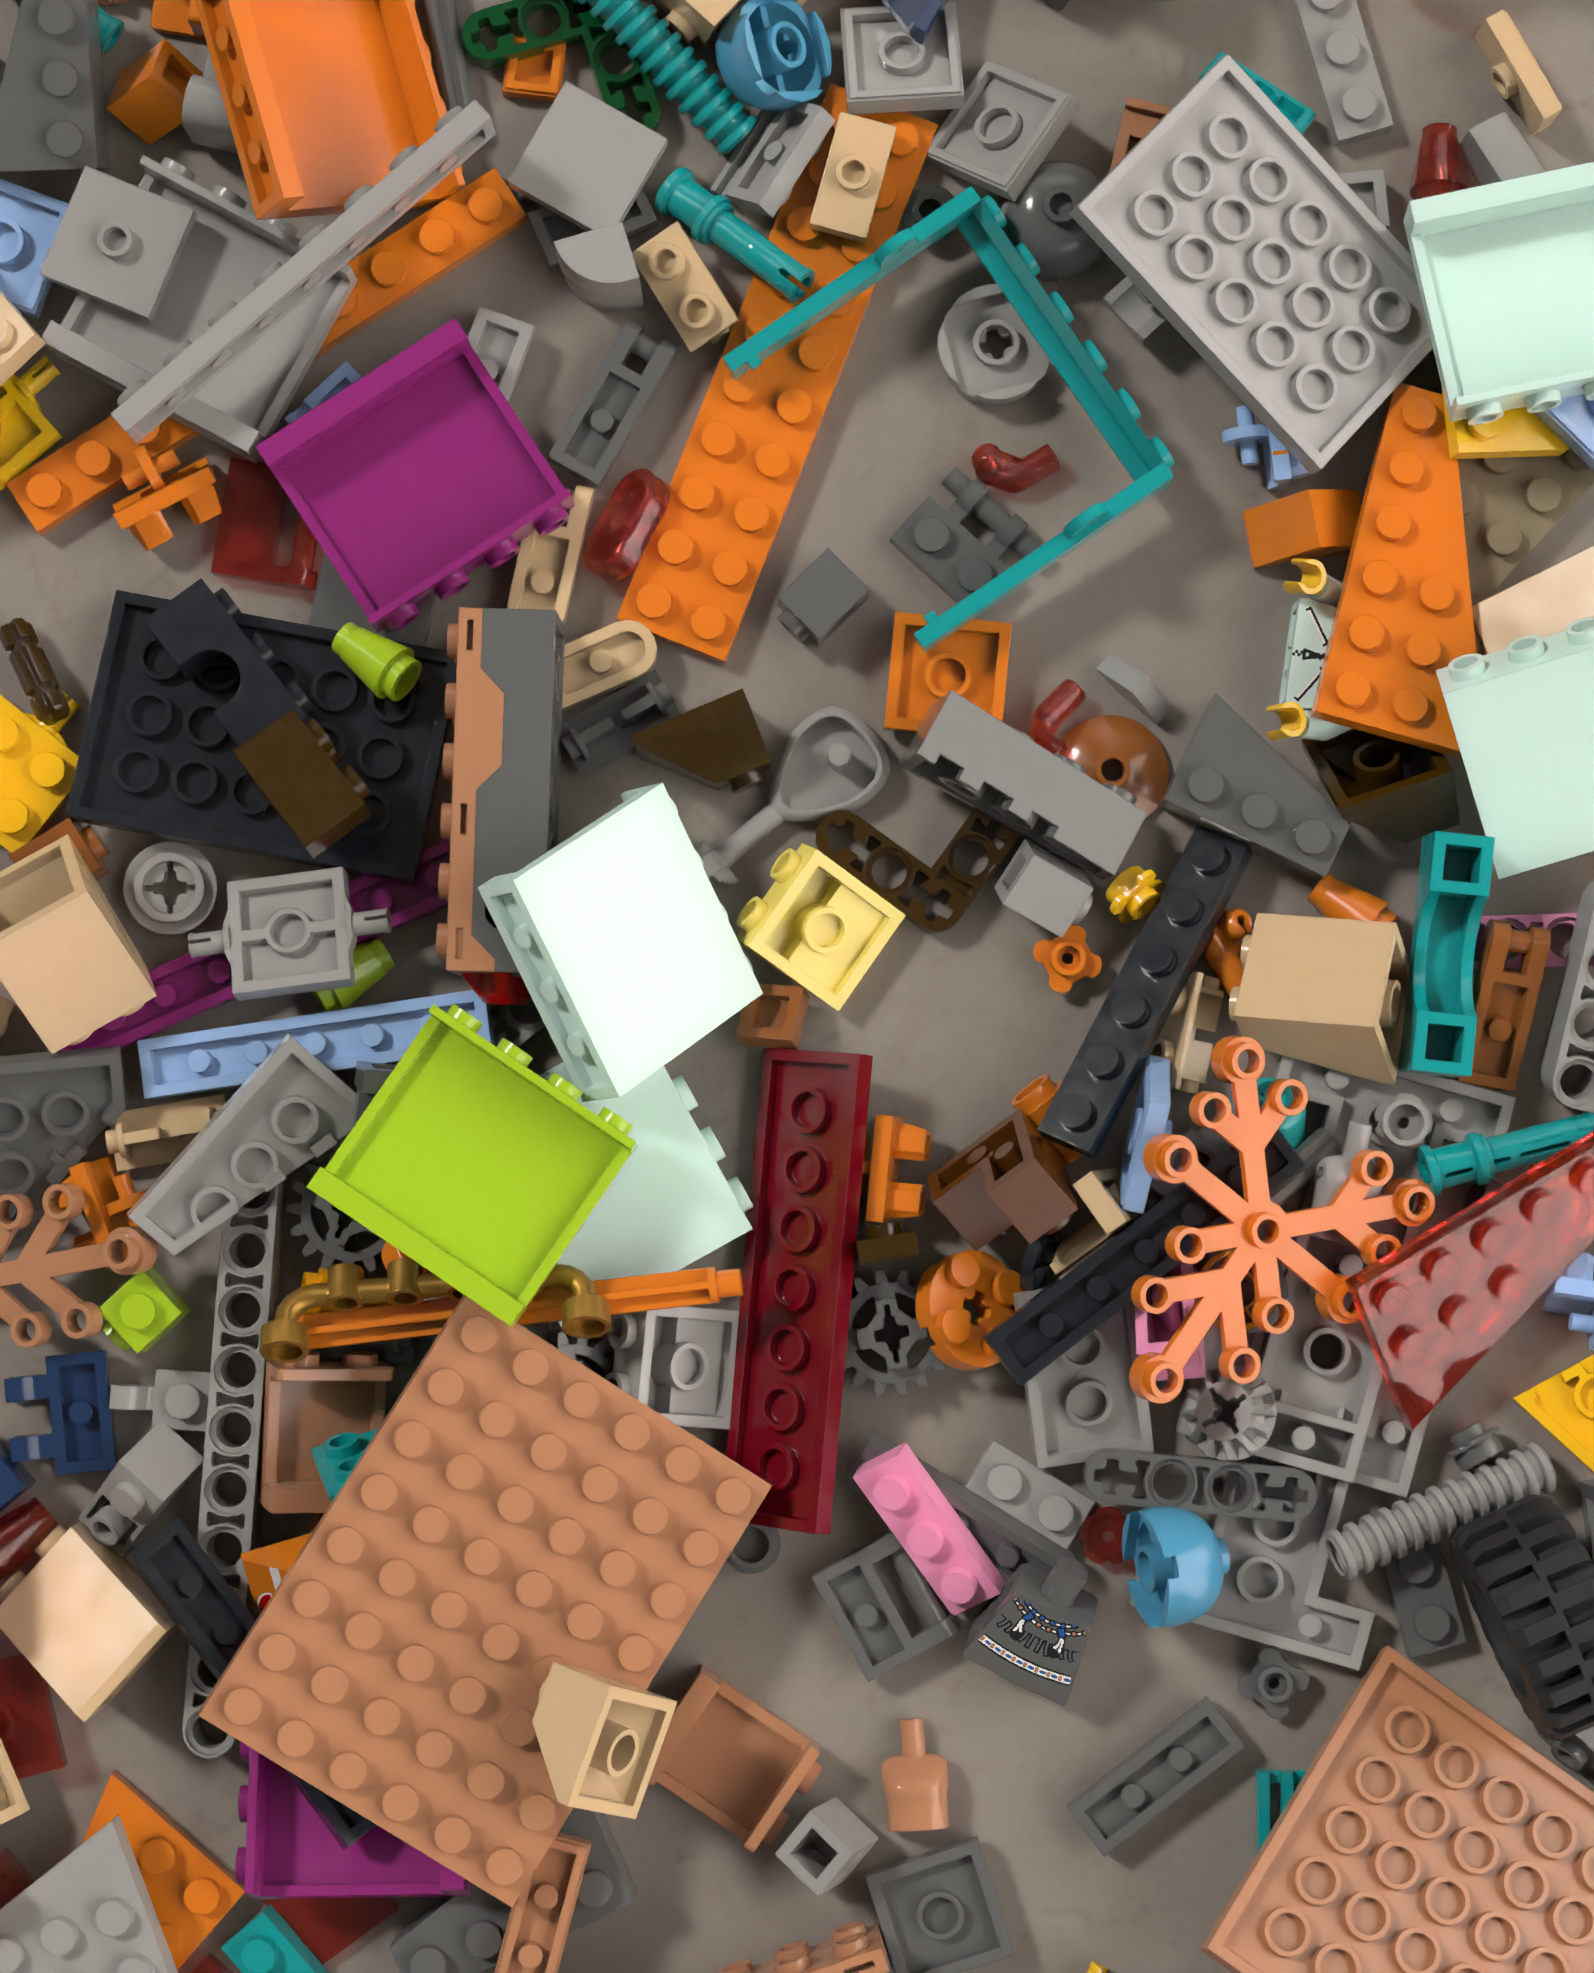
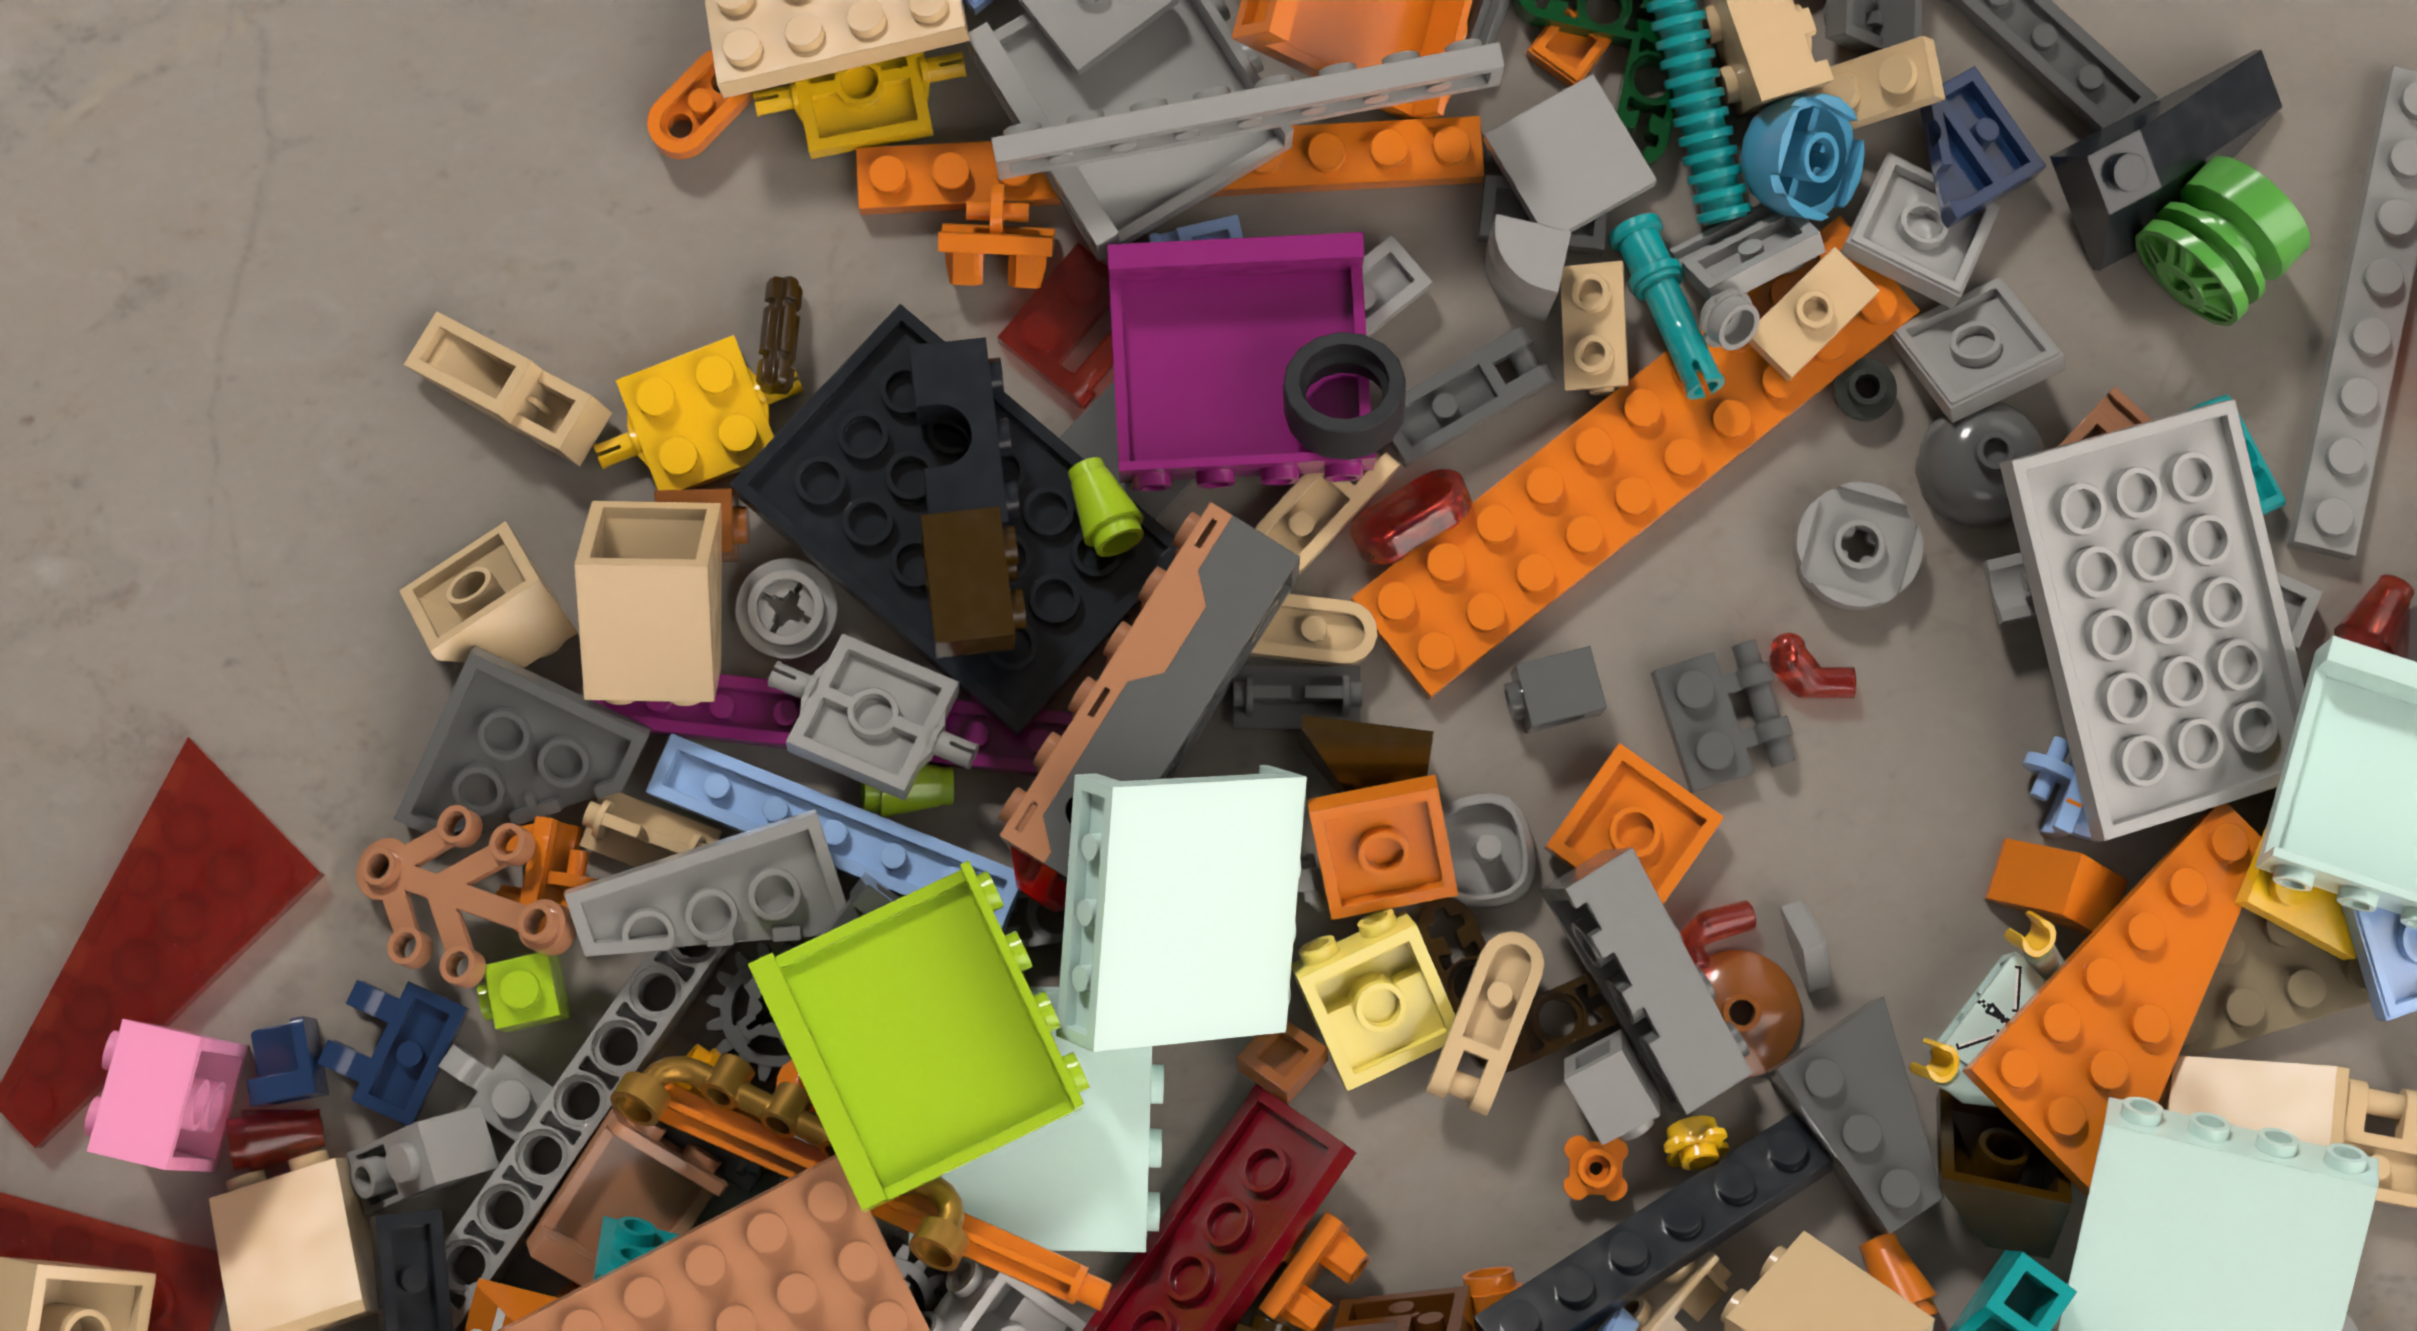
camera: 30 degrees right, 5 degrees down
(501, 424) = (1351, 355): none -> black tyre
(755, 803) = (1382, 847): none -> orange plate
(789, 220) = (1729, 320): none -> light grey plate
(917, 890) = (1489, 1019): none -> tan plate
(1048, 322) = (1920, 554): teal piece -> none
(1225, 947) = (1754, 1245): orange arm -> none

